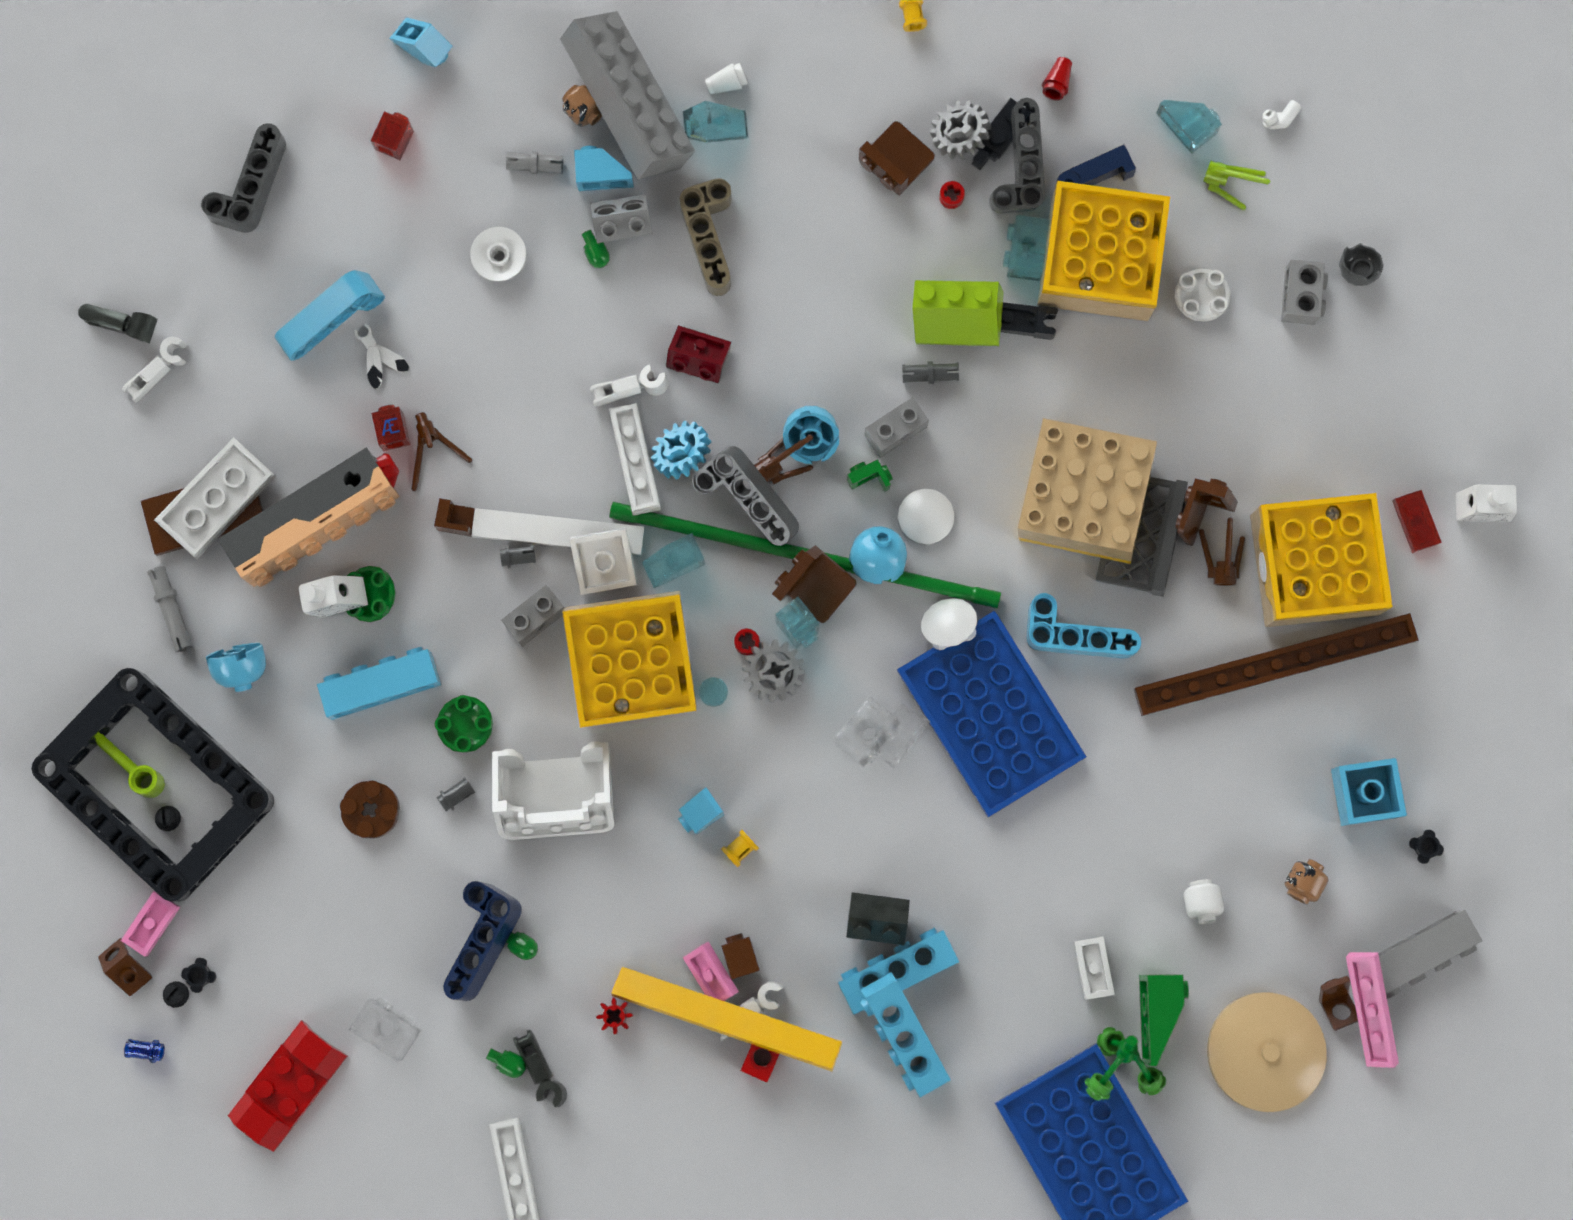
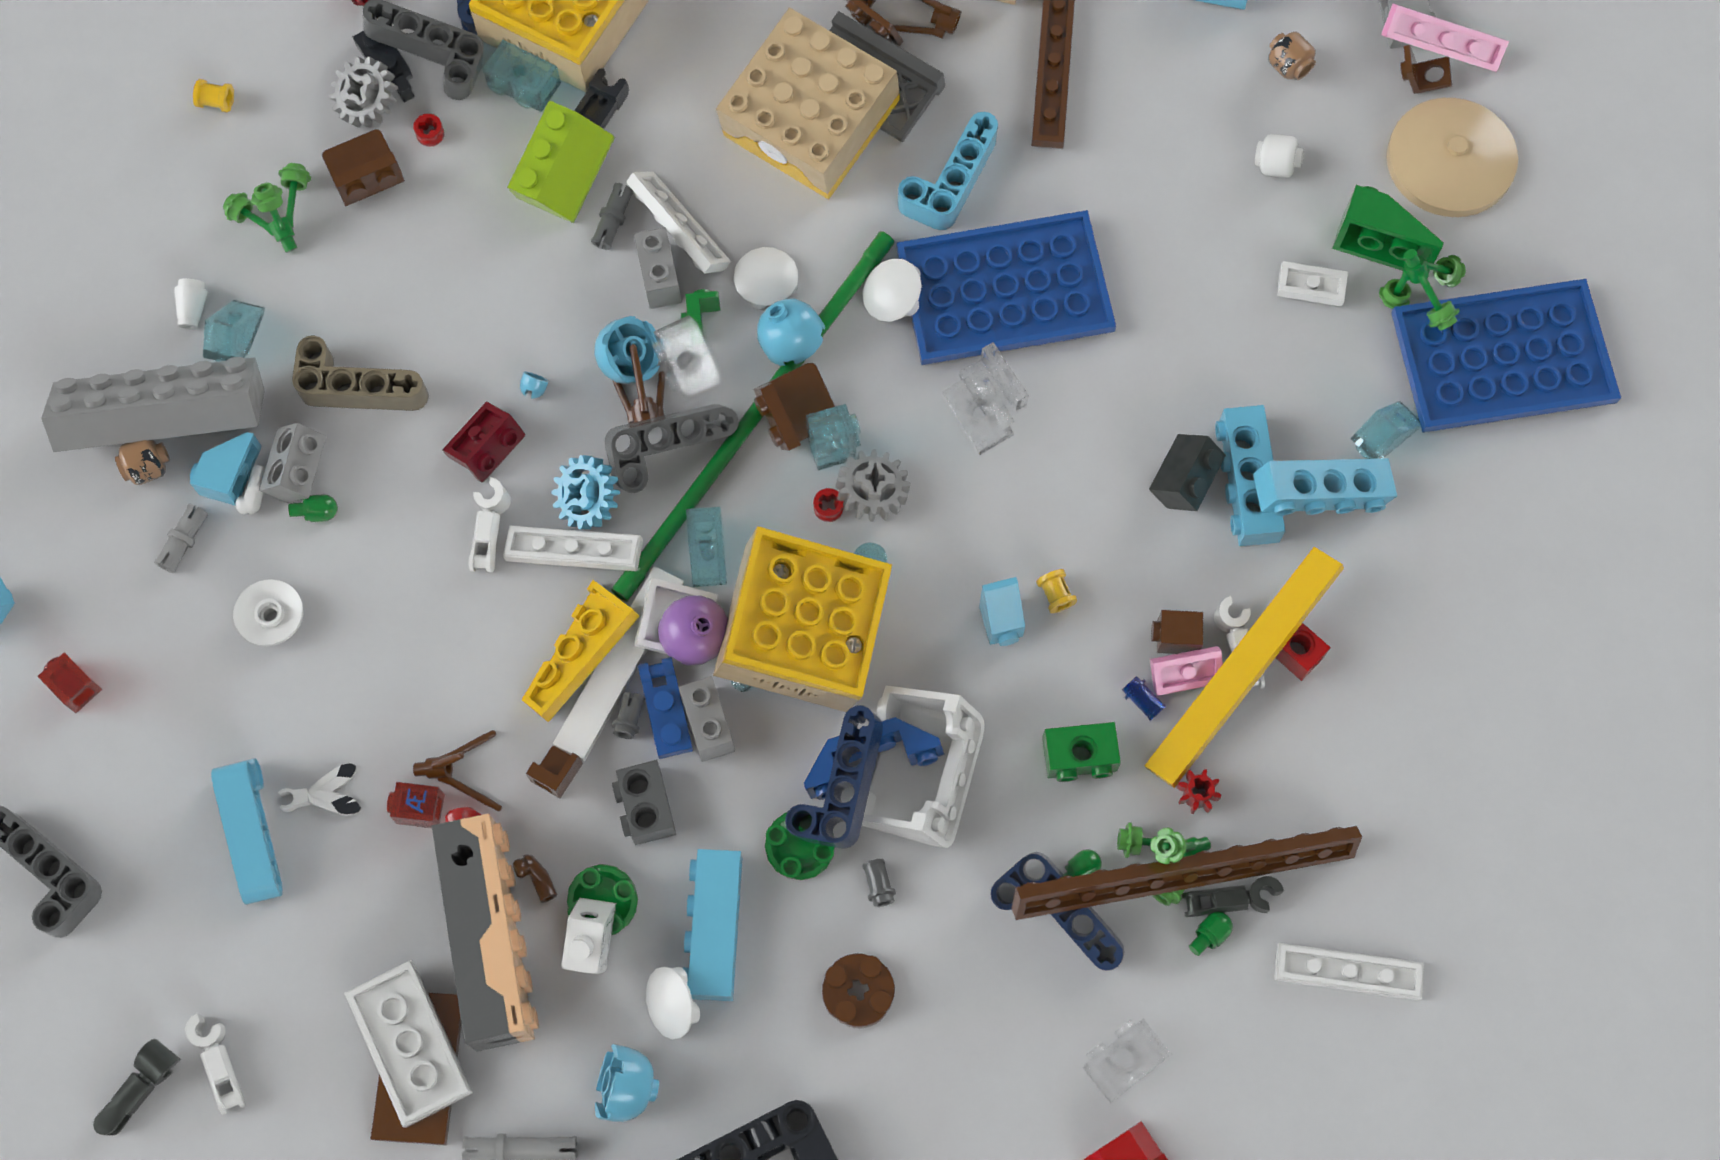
camera: 70 degrees left, 10 degrees down
(308, 674) = (671, 1002): none -> white dish
(372, 540) = (539, 876): none -> reddish brown arm
(457, 602) = (652, 801): none -> dark grey brick
(517, 735) = (842, 777): none -> dark blue beam
(525, 724) = (920, 747): none -> blue slope
(533, 1018) = (1190, 872): none -> reddish brown plate
(534, 578) = (665, 709): none -> blue plate
(547, 1006) = (1167, 846): none -> bright green plant
(566, 502) = (589, 639): none -> yellow wing
(583, 200) = (252, 499): none -> white arm
(603, 567) = (681, 636): none -> medium lavender cylinder
(628, 922) = (1096, 738): none -> green brick
(676, 947) = (1143, 697): none -> clear blue pin
(761, 371) = (534, 383): none -> medium azure hinge
(828, 100) = (268, 199): none -> bright green plant
(833, 472) = (699, 371): none -> clear brick
(945, 427) = (678, 222): none -> white plate
(981, 1072) = (1385, 431): none -> clear light blue slope

